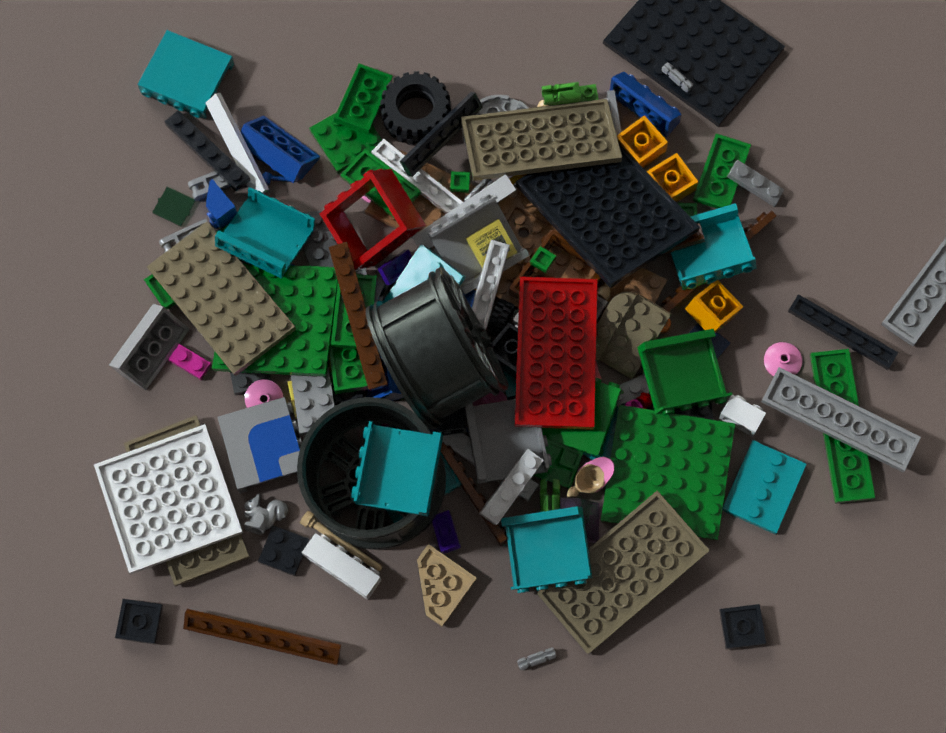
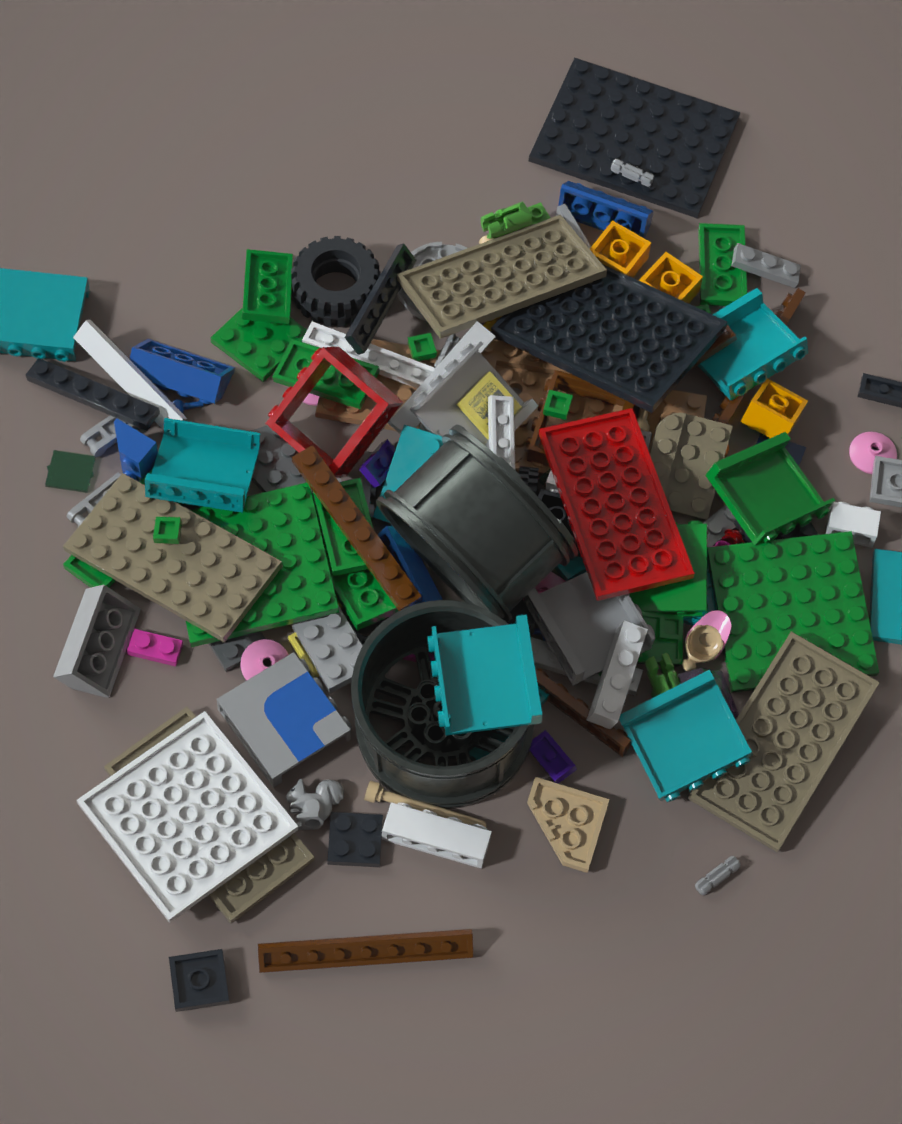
camera: 25 degrees left, 10 degrees down
(220, 278) = (167, 530): none -> green plate

